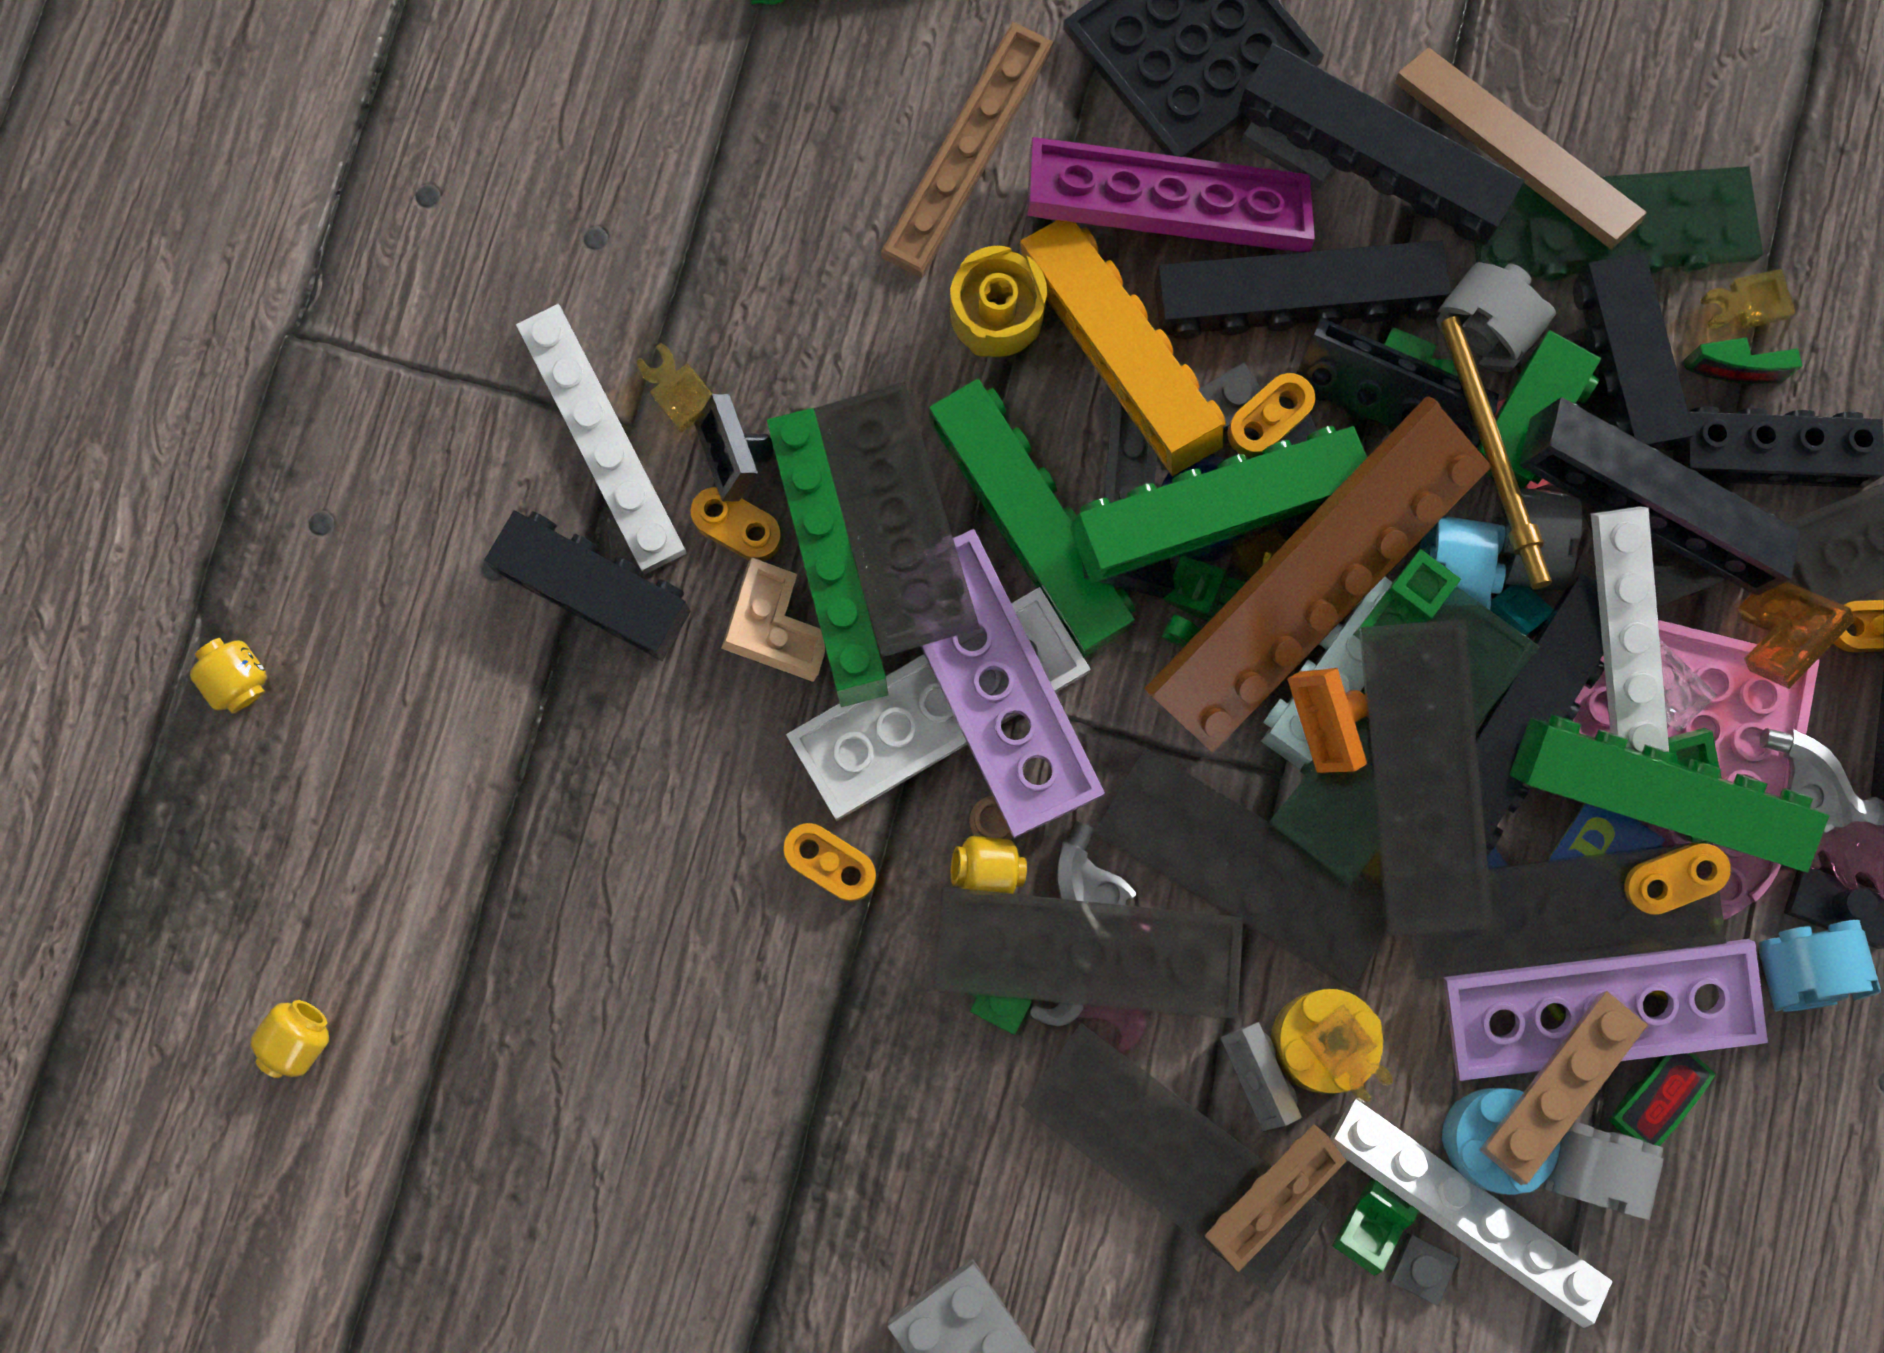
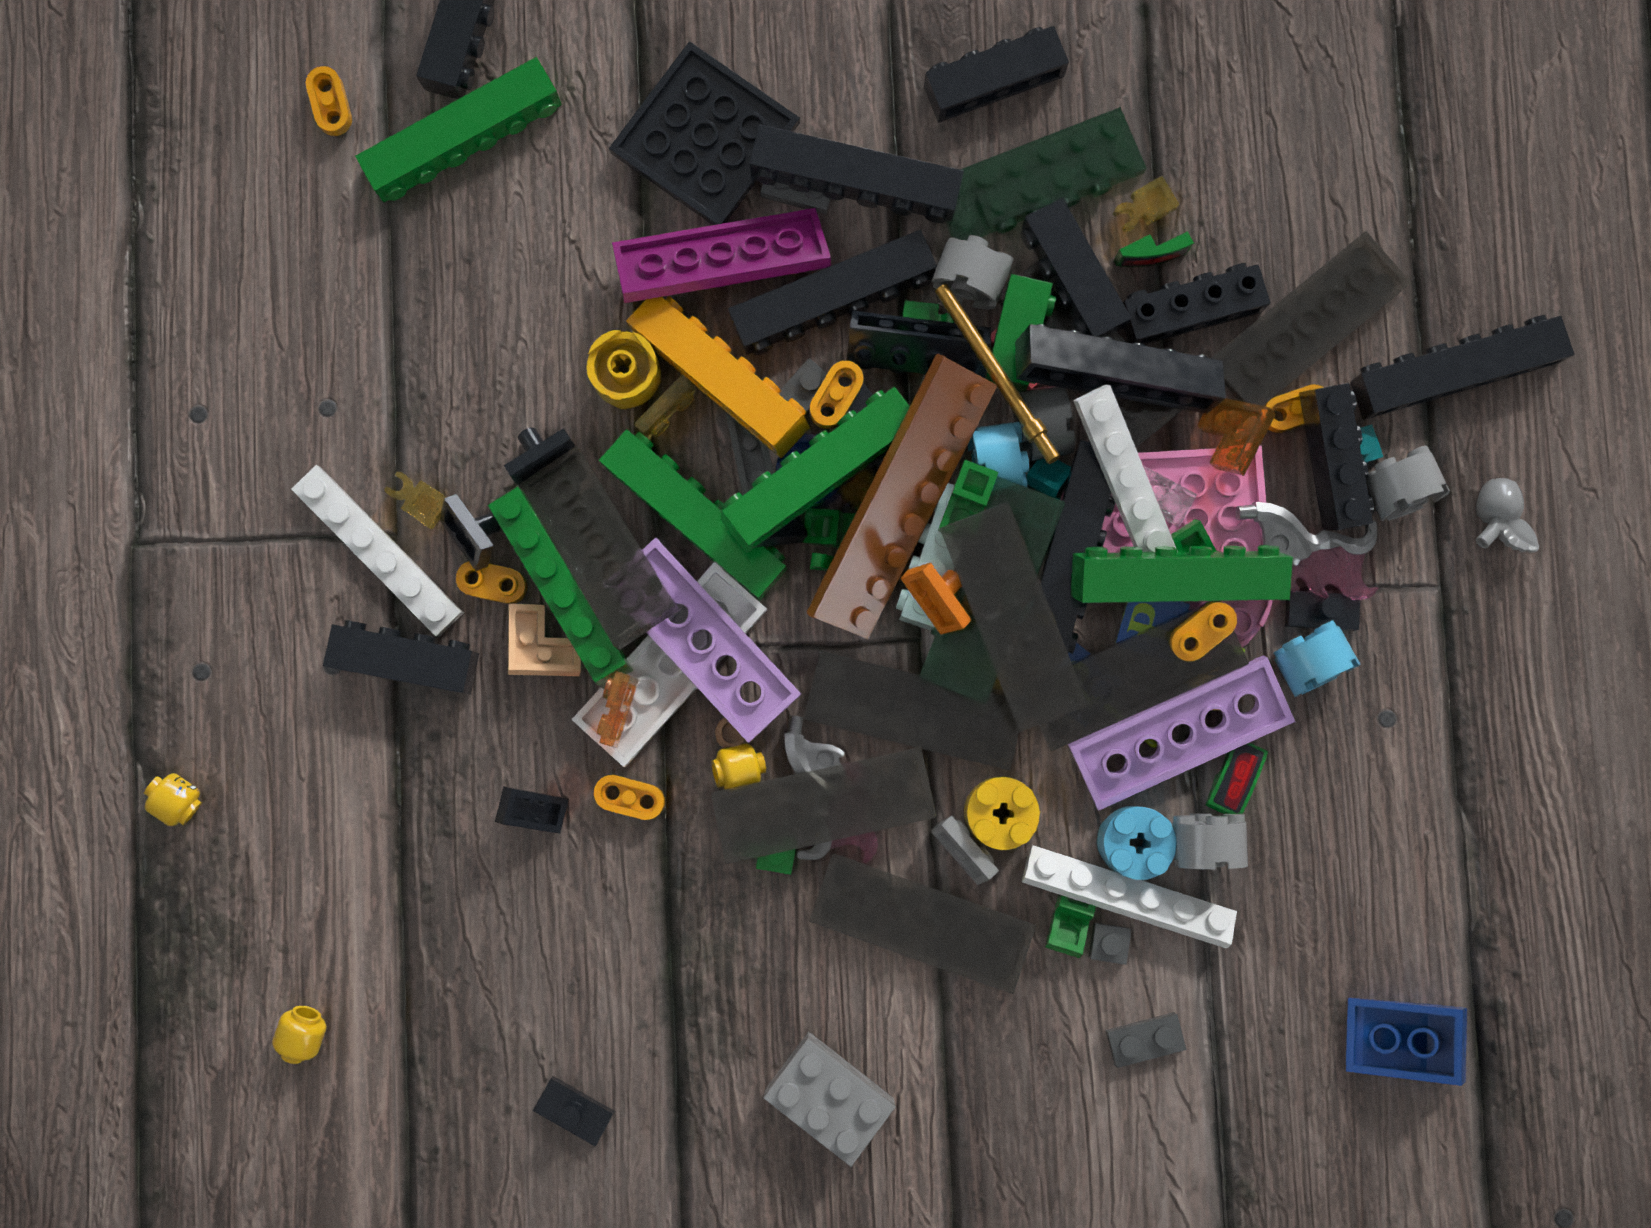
camera: 15 degrees left, 5 degrees up
(621, 1263) = (573, 1111): none -> black tile
(696, 836) = (531, 810): none -> black tile
(851, 375) = (537, 453): none -> black tile
(864, 717) = (619, 695): none -> clear orange plate
(967, 150) = (570, 262): medium nougat tile -> none
(1052, 361) = (675, 398): none -> clear yellow plate
(1275, 1197) = (996, 930): medium nougat plate -> none
(1342, 1047) = (1011, 816): clear yellow plate -> none
(1520, 148) = (956, 144): medium nougat tile -> none
(1563, 1088) = (1166, 796): medium nougat plate -> none
(1598, 75) = (995, 73): none -> black brick

